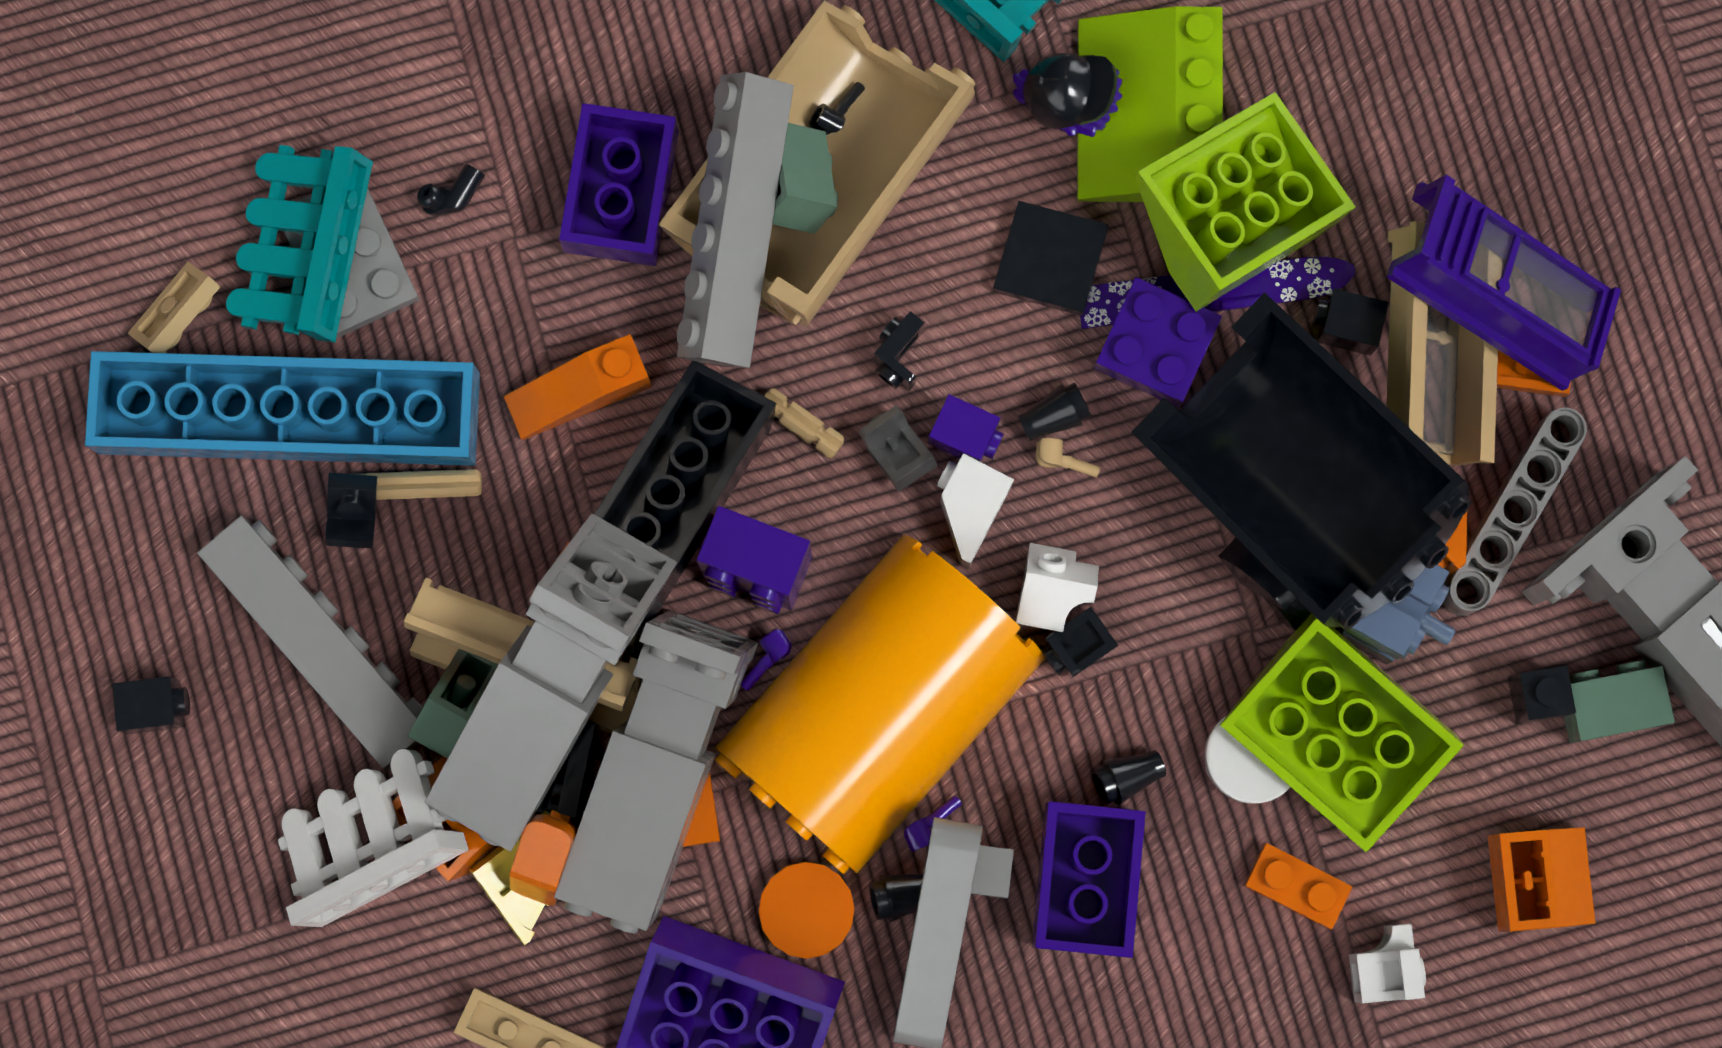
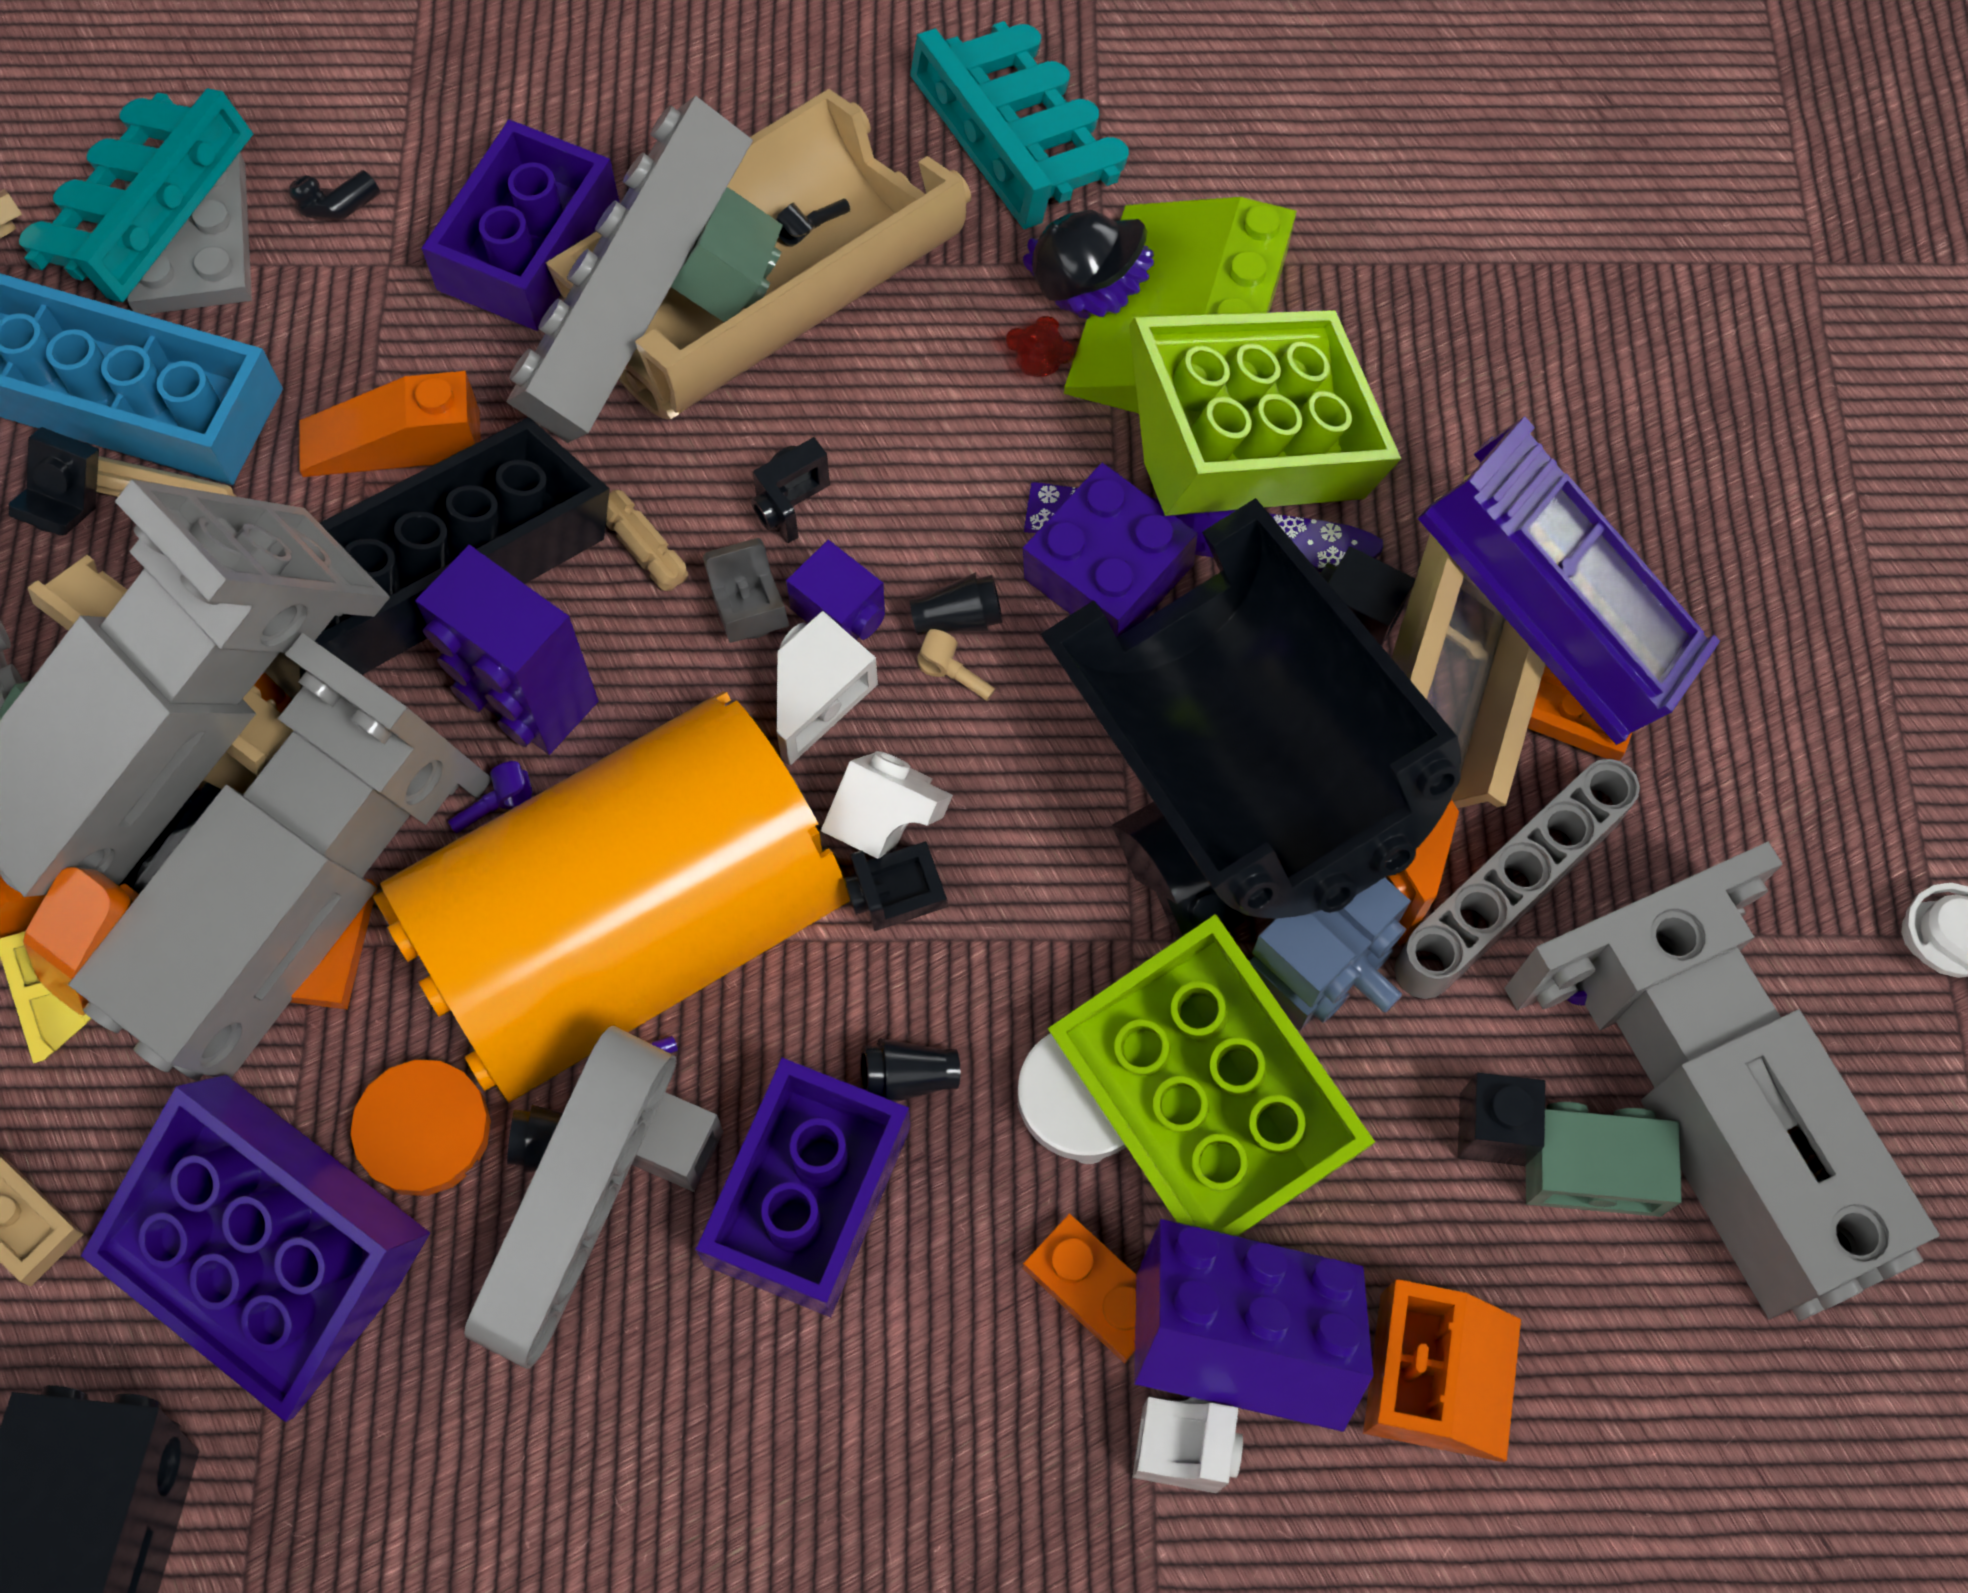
camera: 15 degrees right, 15 degrees down
(1049, 183) = (1040, 360): none -> clear red plate
(1050, 258) = (1010, 439): black tile -> none
(1412, 890) = (1252, 1326): none -> dark purple brick

